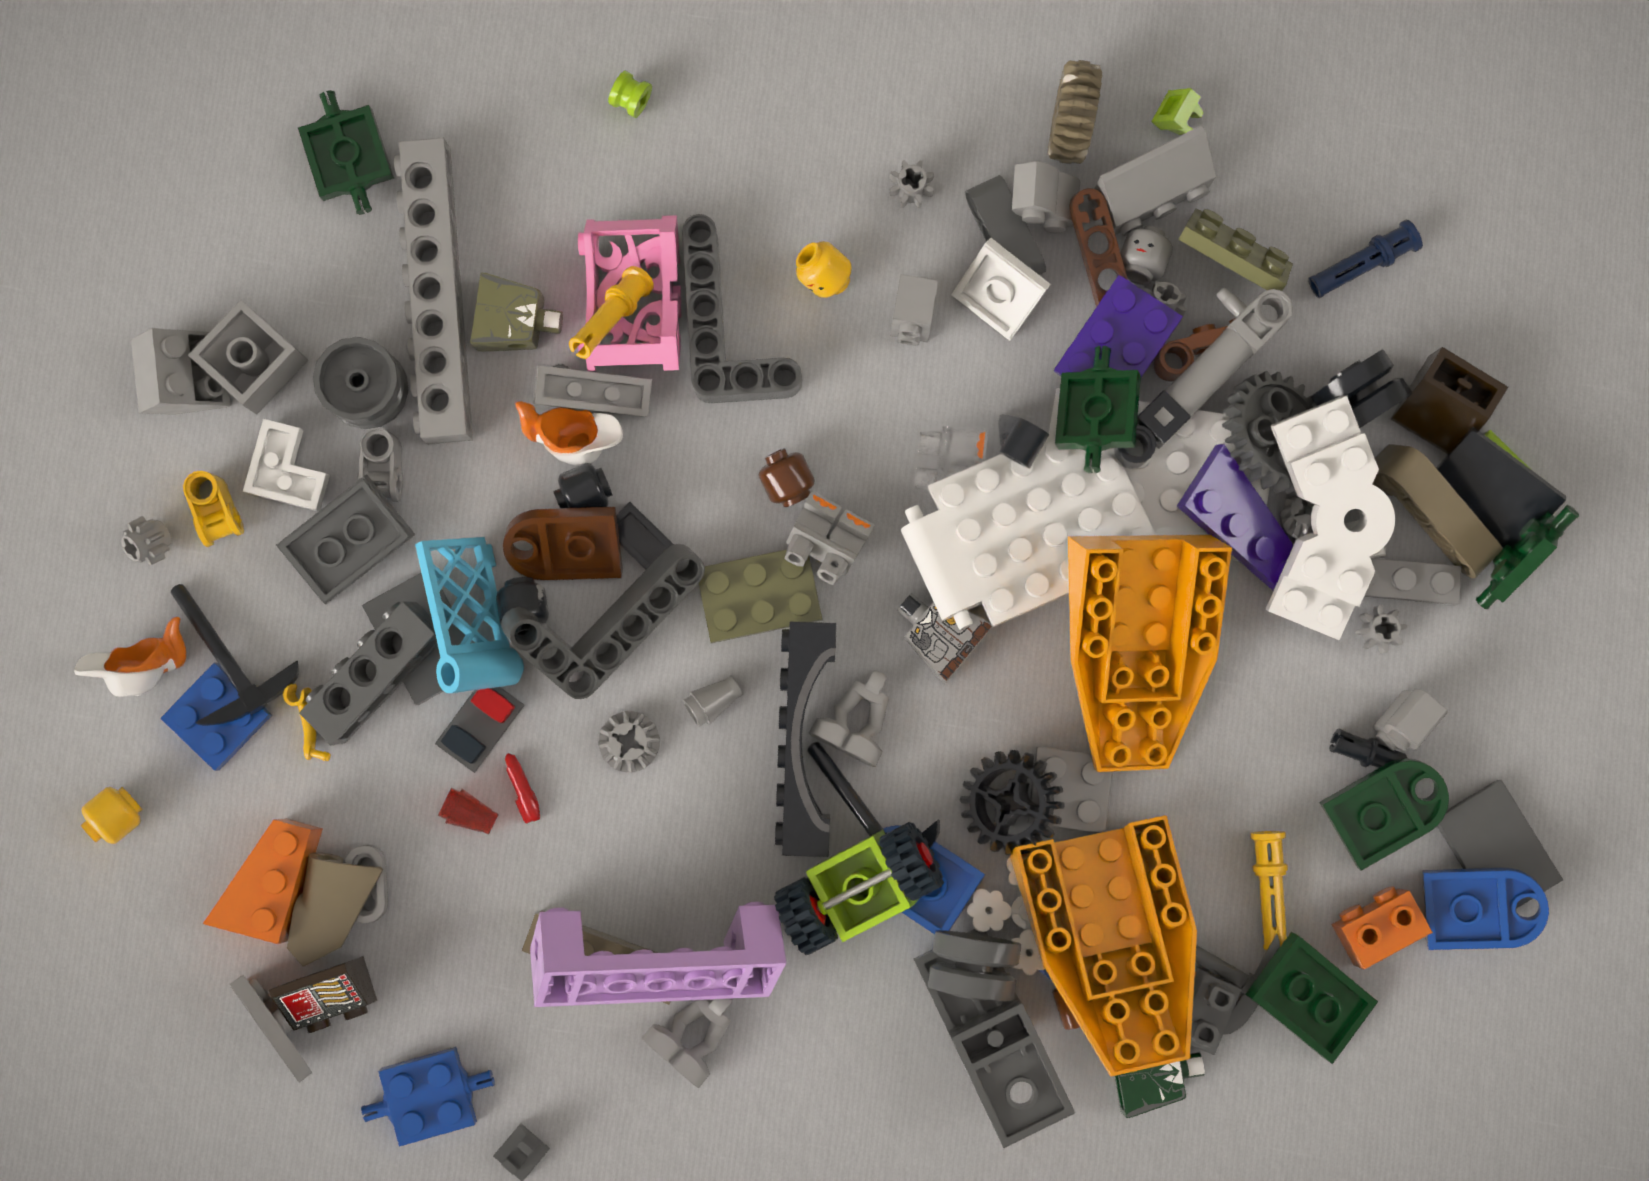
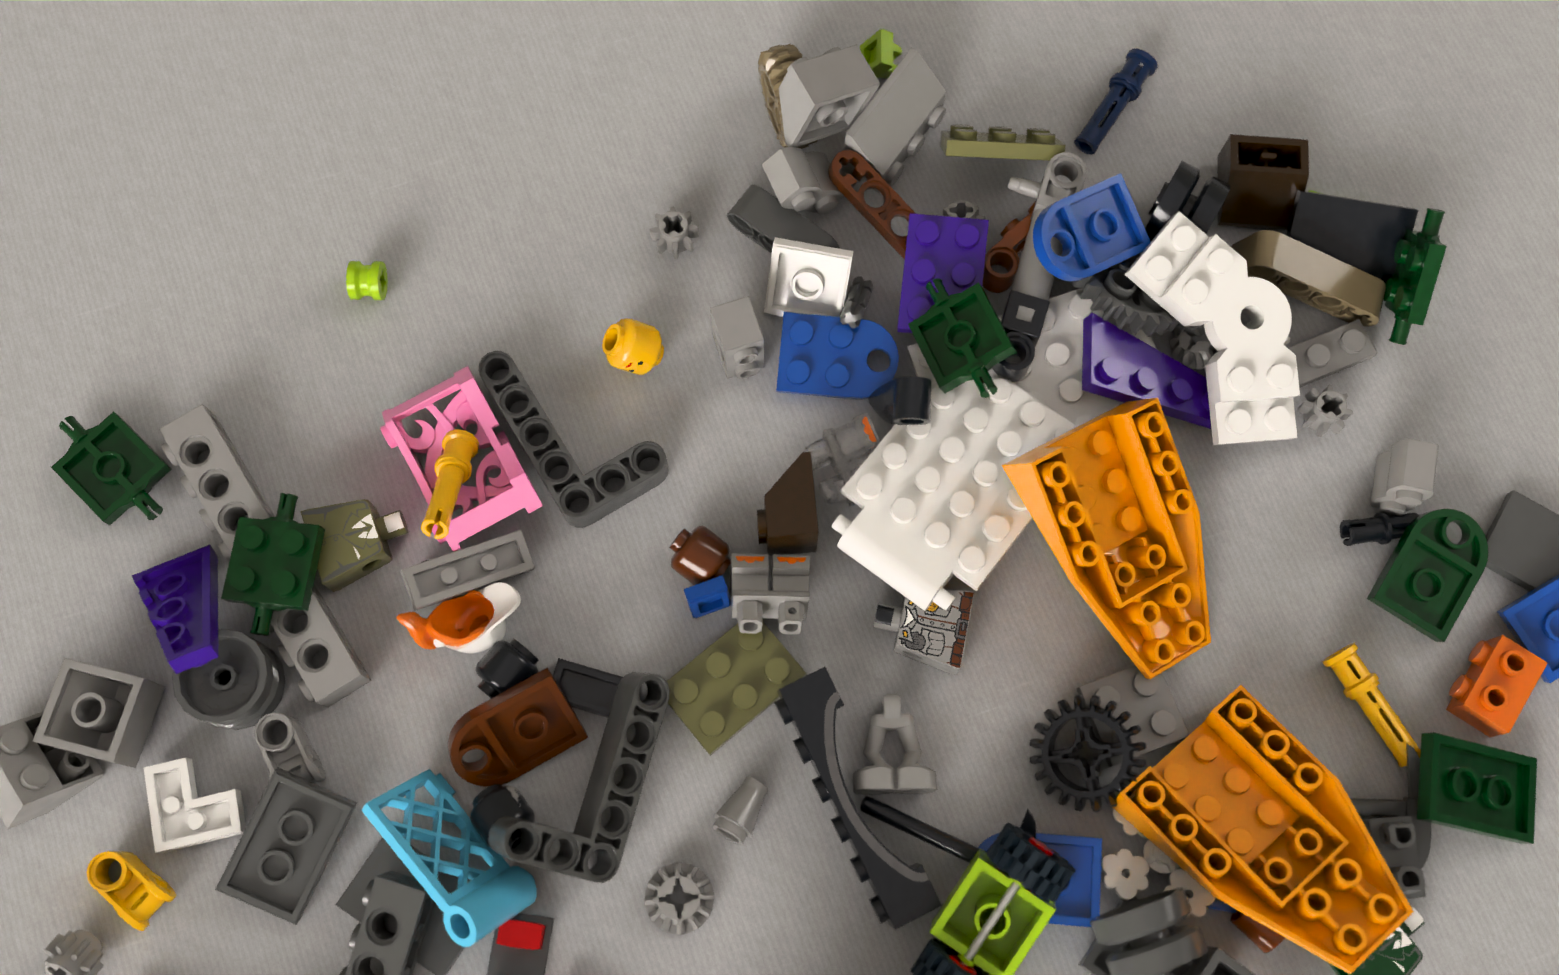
camera: 30 degrees left, 10 degrees down
(352, 305) = (184, 607): none -> dark purple wing
(439, 306) = (273, 564): none -> dark green plate
(775, 515) = (708, 597): none -> blue tile
(877, 480) = (789, 512): none -> dark brown slope
(986, 363) = (831, 358): none -> blue plate
(1032, 328) = (856, 302): none -> dark grey axle
(1099, 132) = (825, 94): none -> light grey slope
(1146, 254) = (922, 187): light grey head -> none
(1263, 373) = (1095, 230): none -> blue plate

